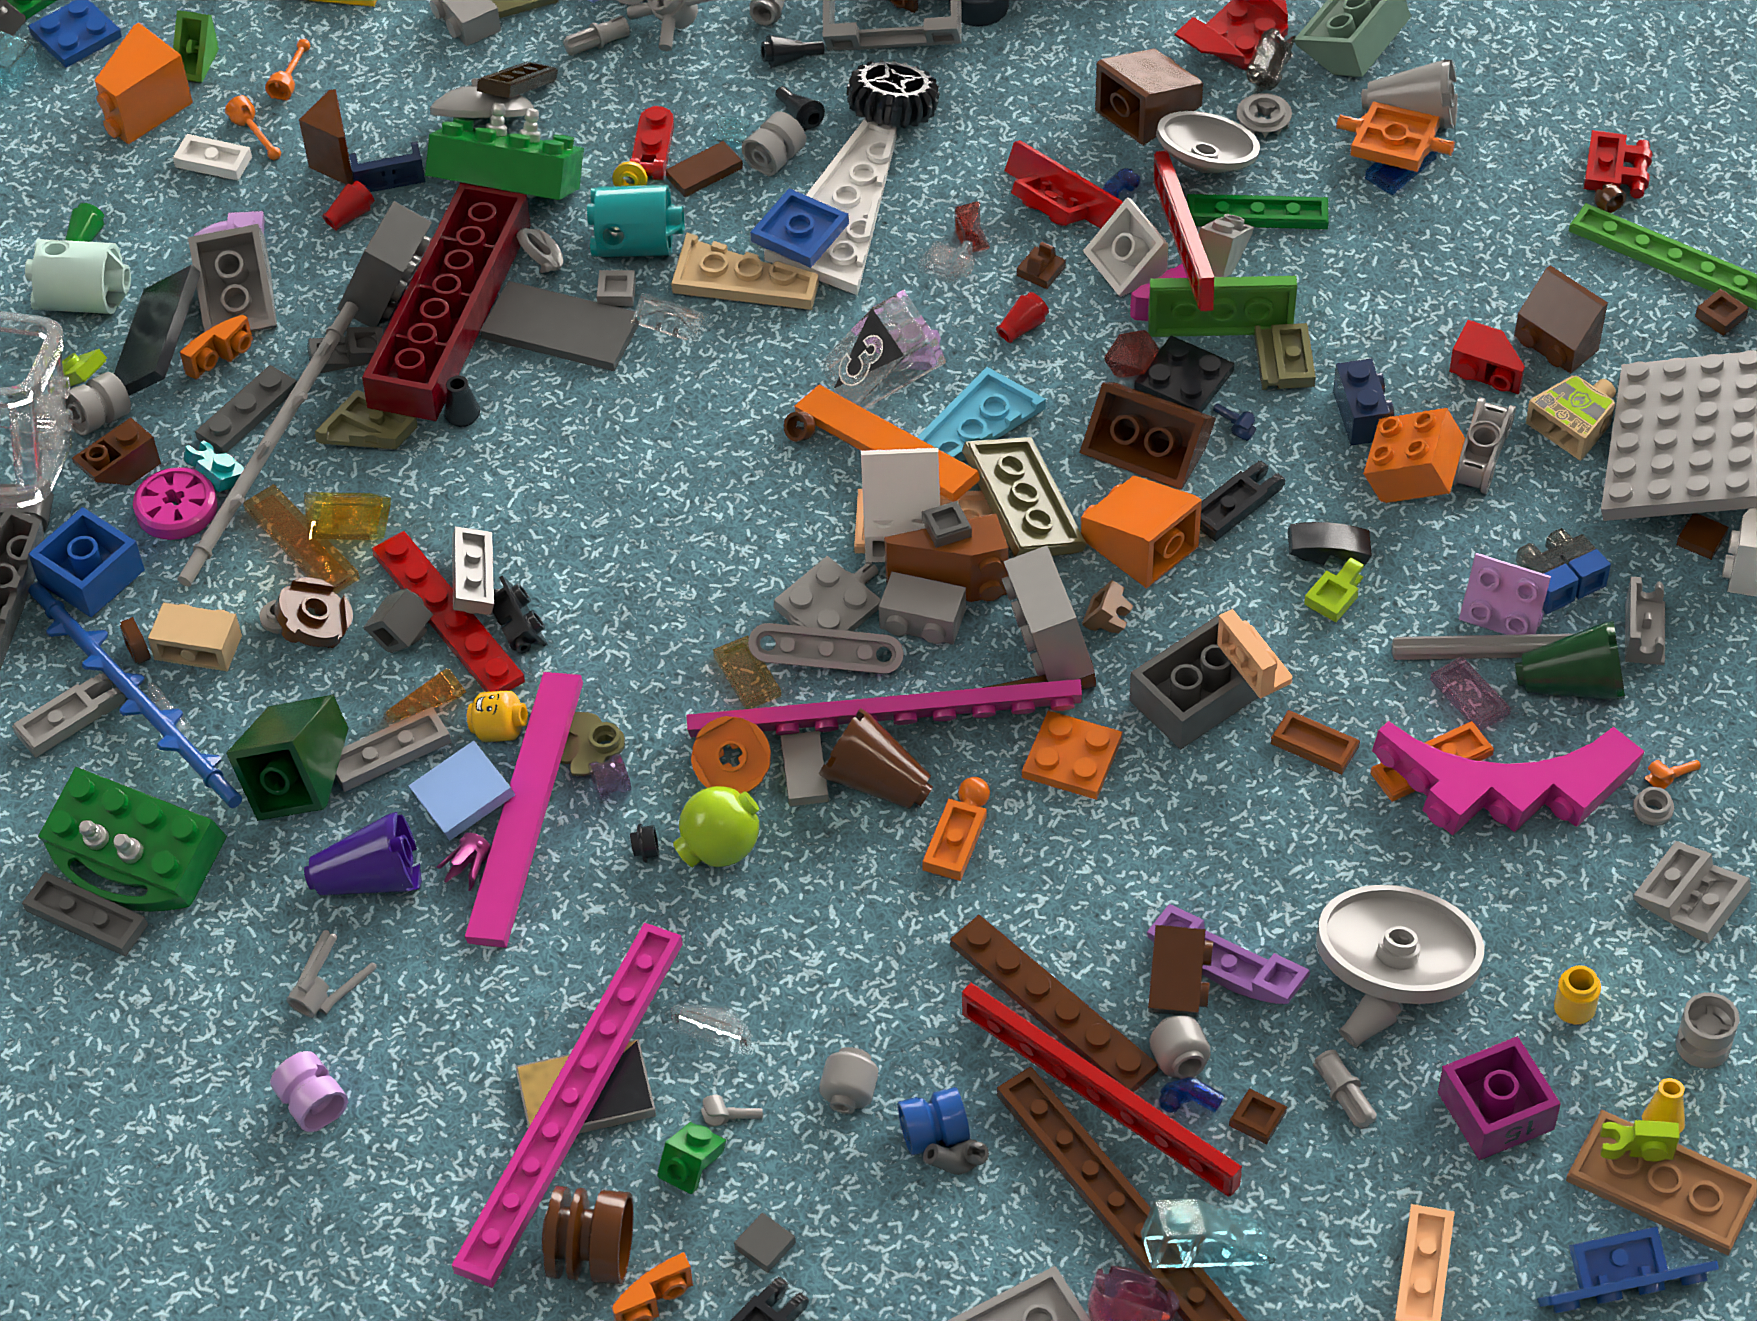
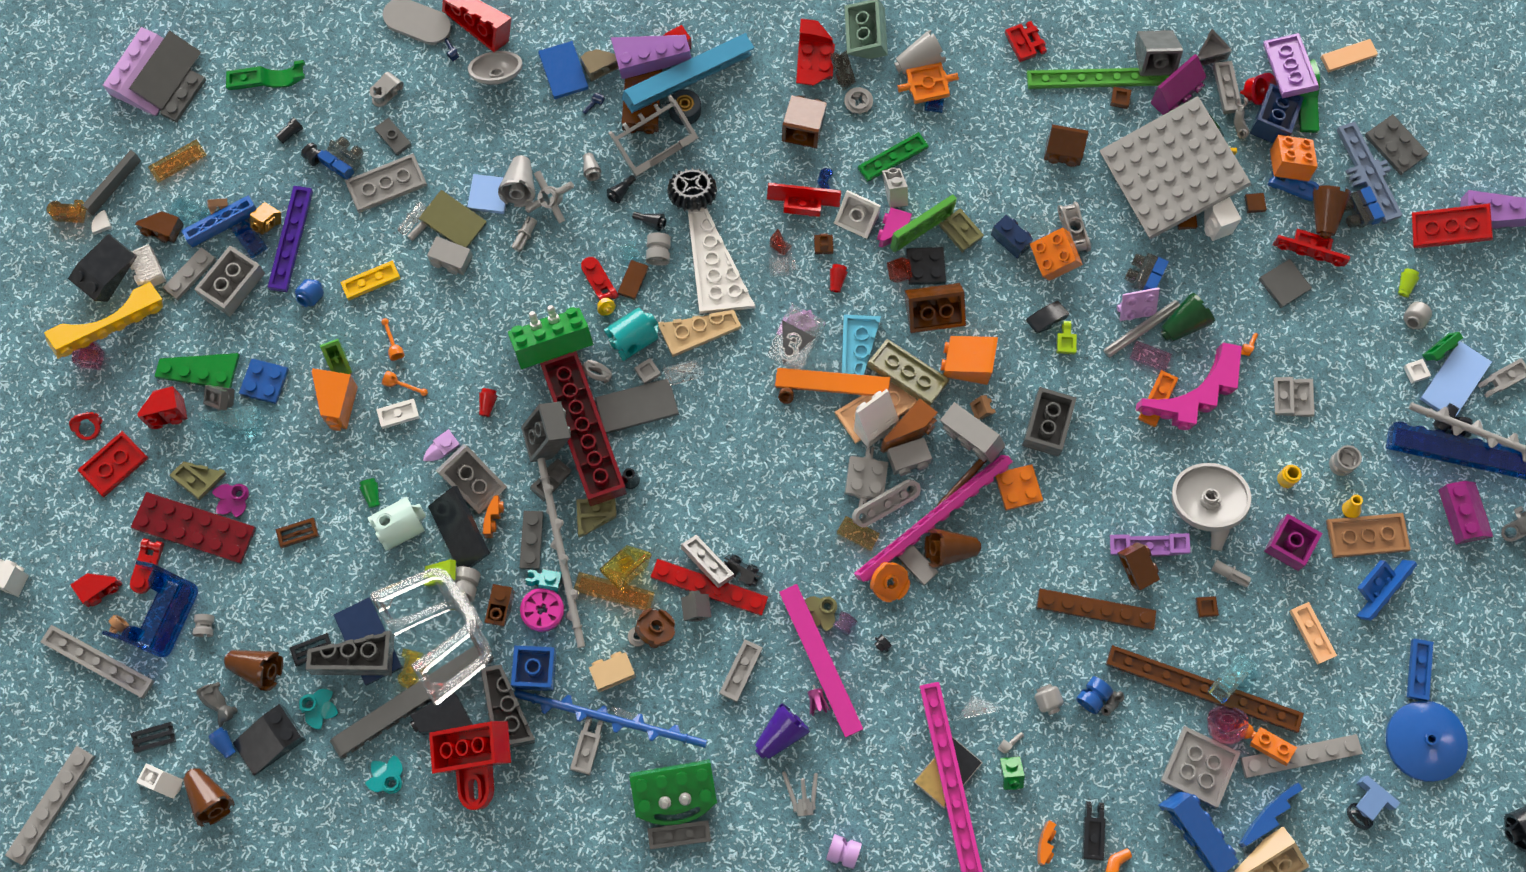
camera: 40 degrees left, 20 degrees up
(134, 641) = (588, 692): reddish brown tile -> none
(290, 757) = (708, 704): dark green slope -> none
(326, 139) = (453, 374): reddish brown slope -> none
(389, 172) = (488, 369): dark blue hinge -> none
(435, 692) = (737, 637): clear orange slope -> none
(461, 790) = (789, 670): light blue tile -> none
(470, 103) = (511, 312): light grey dish -> none
(496, 716) = (775, 625): yellow head -> none
(517, 79) = (518, 288): dark brown tile -> none
(583, 1234) = (1005, 840): reddish brown wheel -> none
(717, 827) = (913, 620): lime brick -> none
(764, 1242) = (1067, 789): dark grey tile -> none
(799, 228) = (710, 291): blue plate -> none
(946, 524) = (905, 417): dark grey tile -> none
(958, 830) = (1002, 554): orange plate -> none
(1101, 1090) = (1143, 637): red tile -> none
(1180, 1047) = (1160, 597): light grey head -> none
(1184, 231) = (886, 196): red tile -> none
(1189, 1090) = (1171, 617): clear blue arm -> none
(1207, 141) = (851, 134): light grey dish -> none
(1237, 500) = (994, 318): black hinge -> none
(1243, 423) = (968, 275): dark blue hand -> none
(1251, 655) = (1073, 403): light nougat bracket -> none
(1315, 742) = (1107, 418): dark orange tile -> none
(1487, 357) = (1045, 180): red slope -> none
(1573, 413) = (1100, 189): torso -> none
(1609, 198) = (1036, 62): reddish brown hinge -> none
(1644, 624) = (1194, 279): light grey hinge -> none
(1644, 1139) = (1359, 525): lime plate -> none
(1656, 797) = (1258, 362): light grey plate -> none

